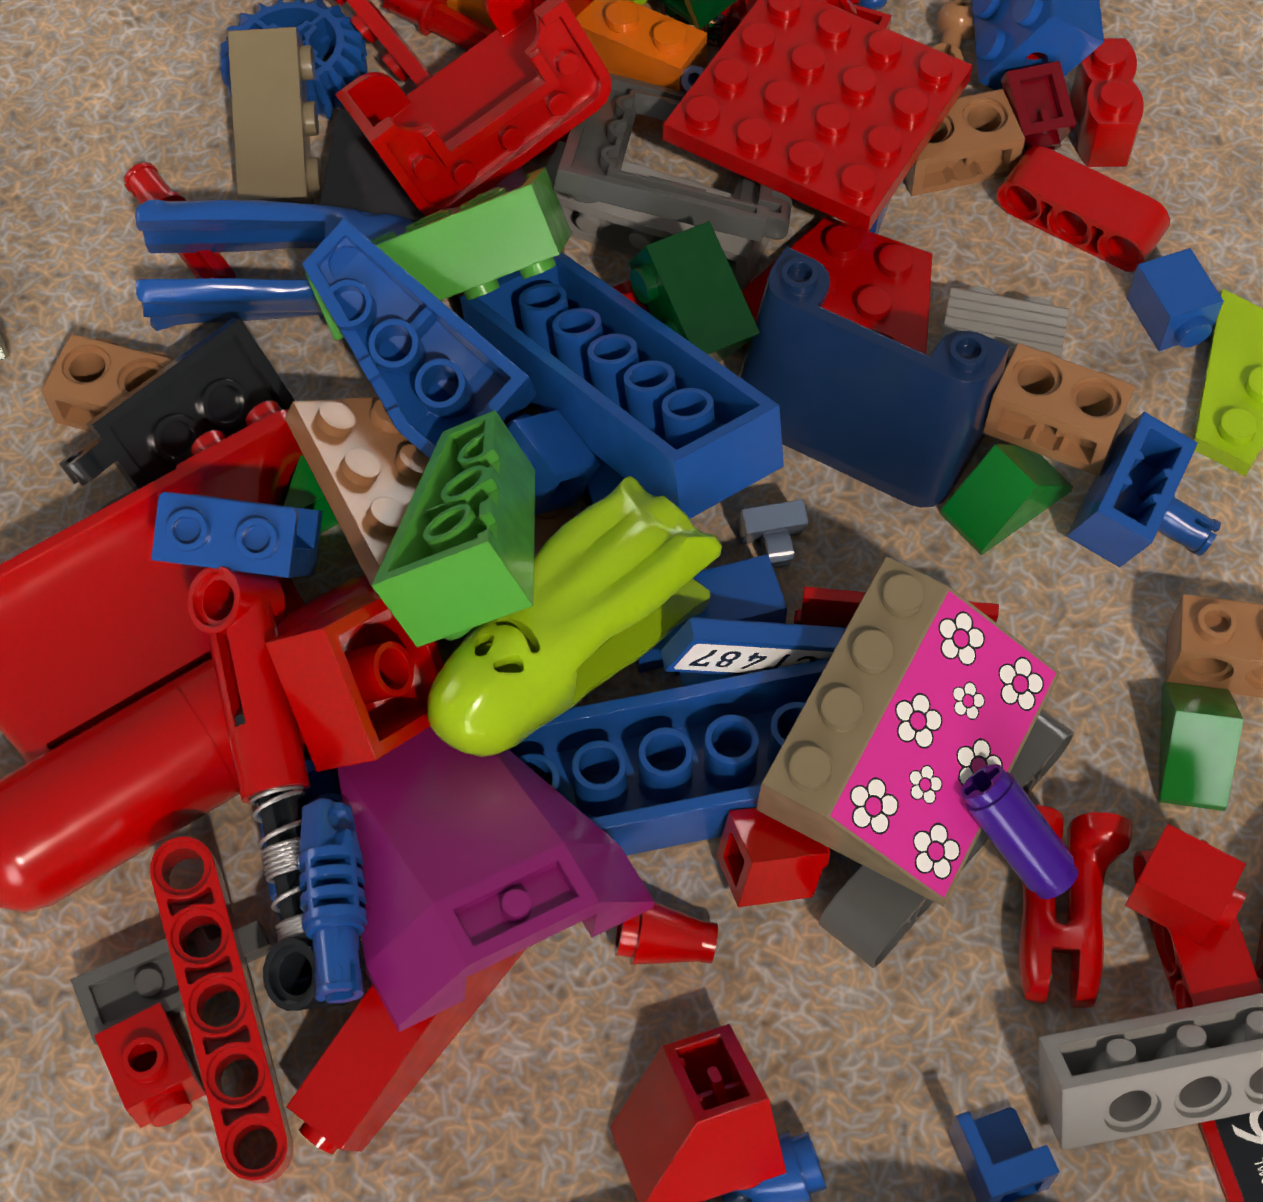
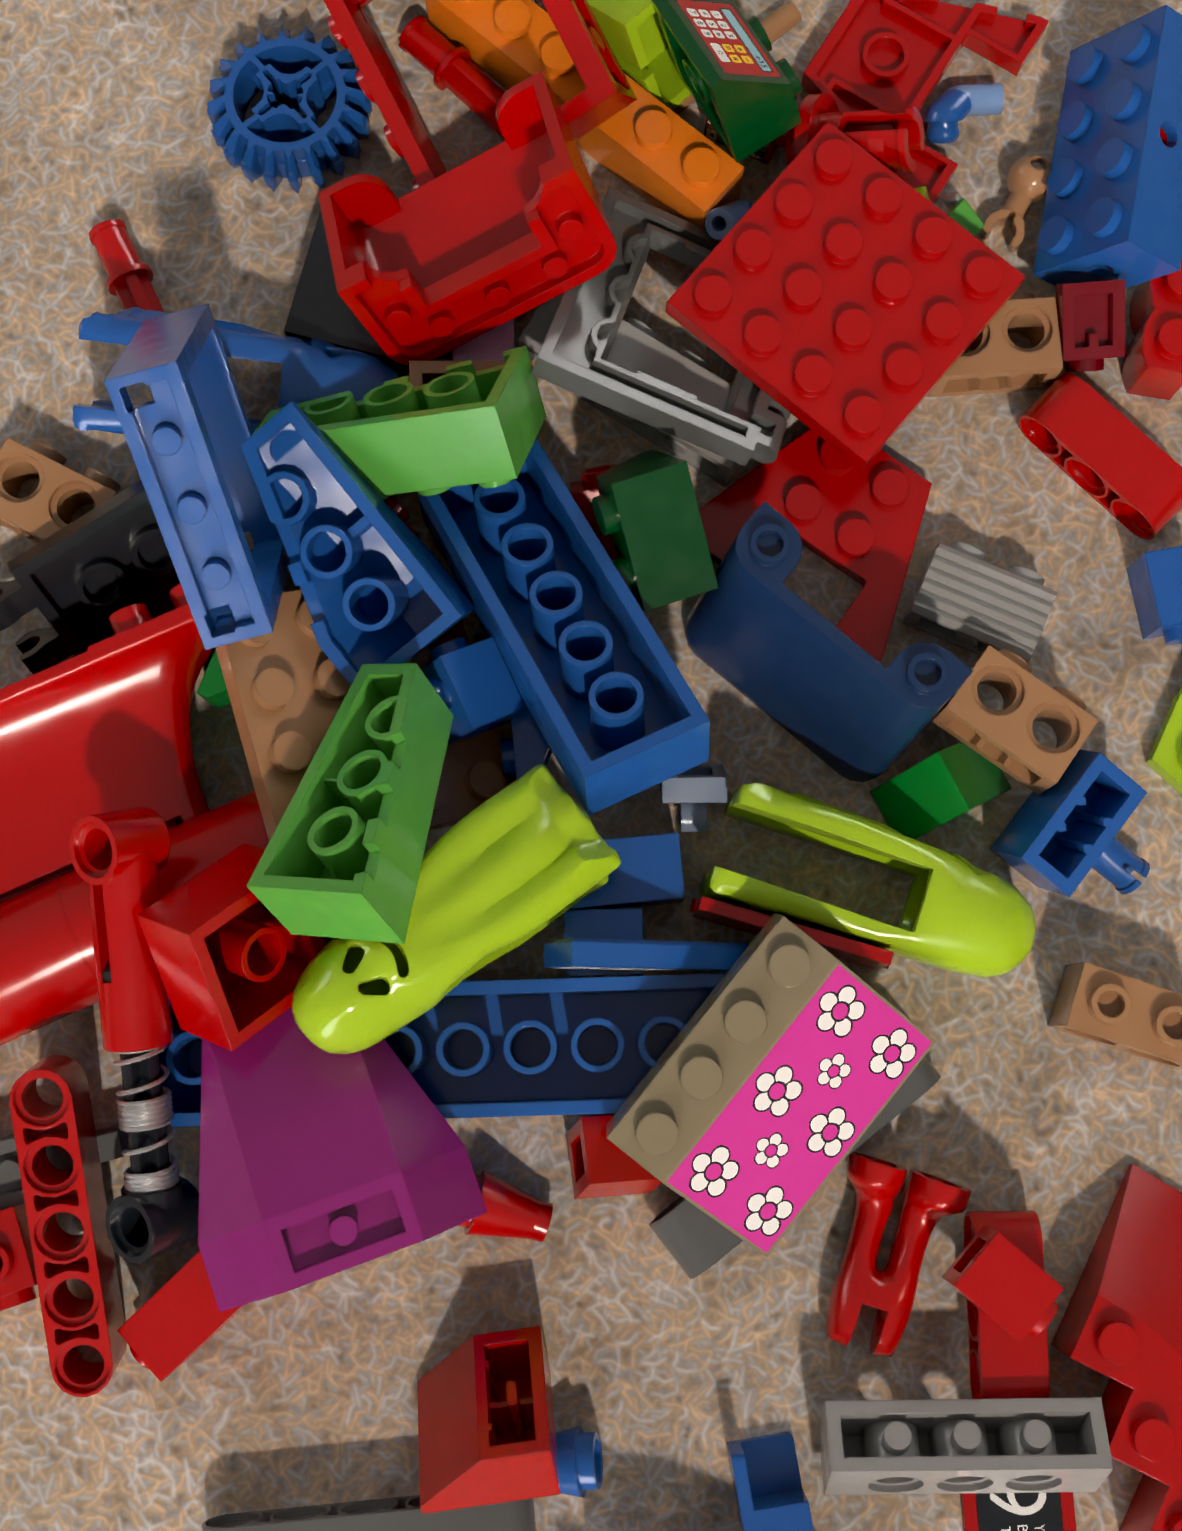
camera: 10 degrees right, 20 degrees up
(236, 535) = (134, 764): blue panel -> none
(273, 115) = (251, 200): dark tan brick -> none
(273, 272) = (198, 474): none -> blue window
(332, 898) = (172, 1194): blue hinge -> none
(1019, 831) = (854, 1203): dark purple piece -> none
(1049, 581) = (952, 912): none -> lime piece
(1197, 745) = (1062, 1100): green slope -> none

